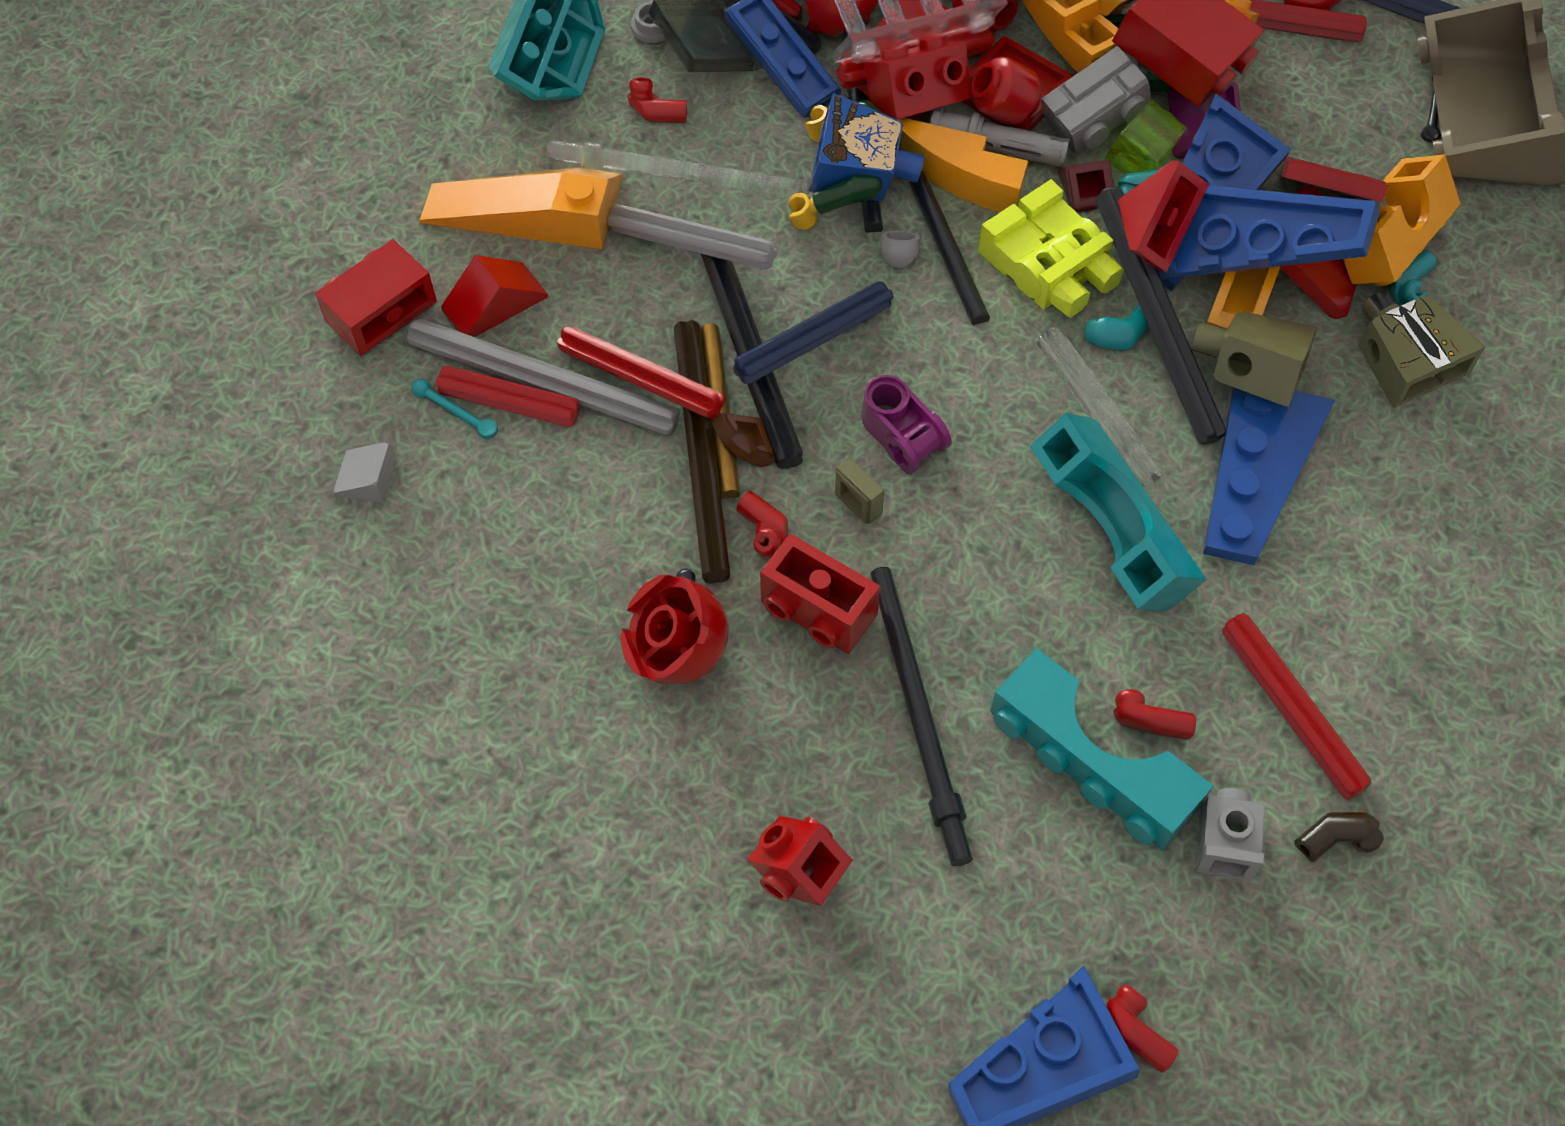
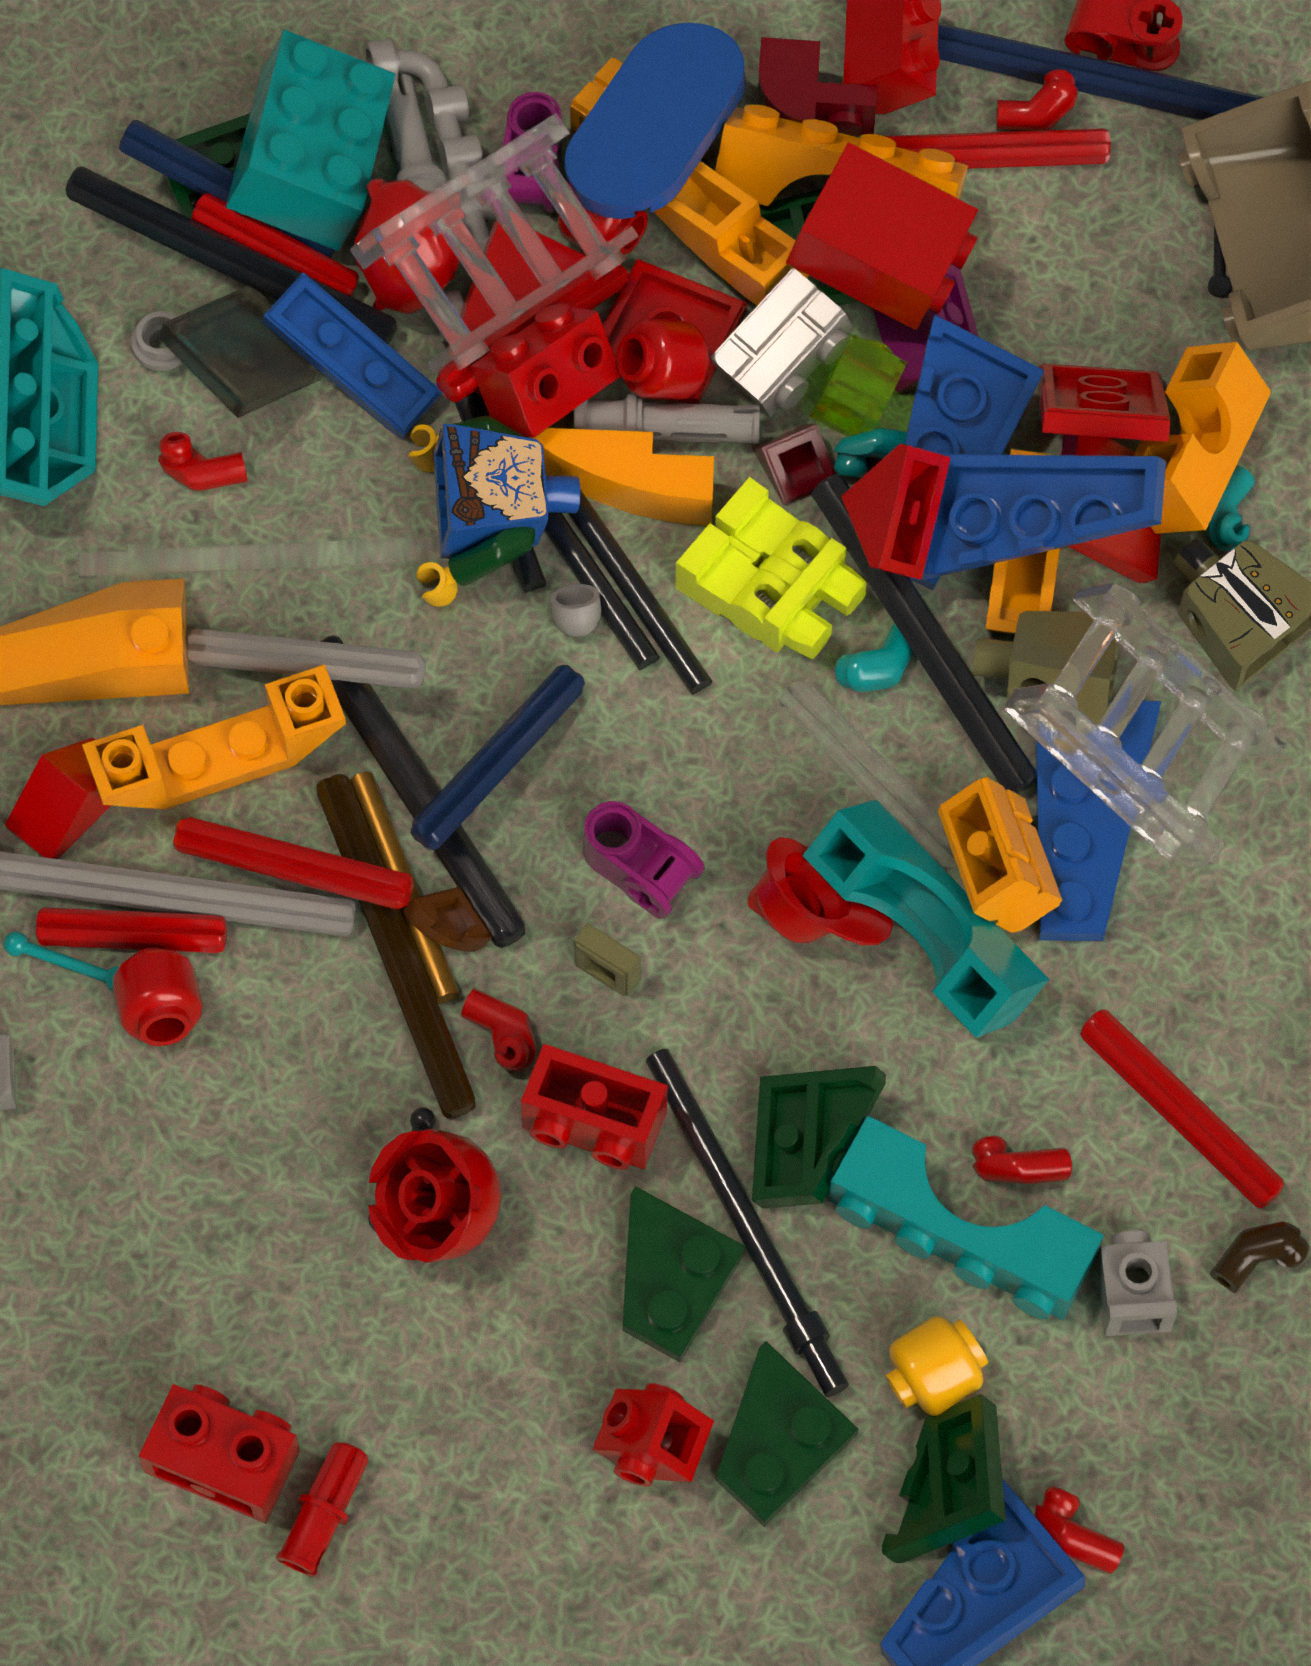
camera: 15 degrees left, 5 degrees up
(450, 790) = (220, 1451): none -> red brick
(510, 443) = (157, 996): none -> red head
(518, 857) = (323, 1509): none -> red axle
(609, 292) = (222, 755): none -> light orange slope
(850, 739) = (672, 1274): none -> dark green wing
(905, 889) = (779, 1437): none -> dark green wing
(927, 254) = (612, 607): none -> black bar
(984, 650) = (806, 1131): none -> dark green wing
(1023, 484) = (806, 906): none -> red piece
(1041, 961) = (953, 1481): none -> dark green wing
(1049, 860) = (936, 1365): none -> yellow head
(1185, 478) = (999, 855): none -> light orange brick
(1281, 411) = (1095, 751): none -> clear fence

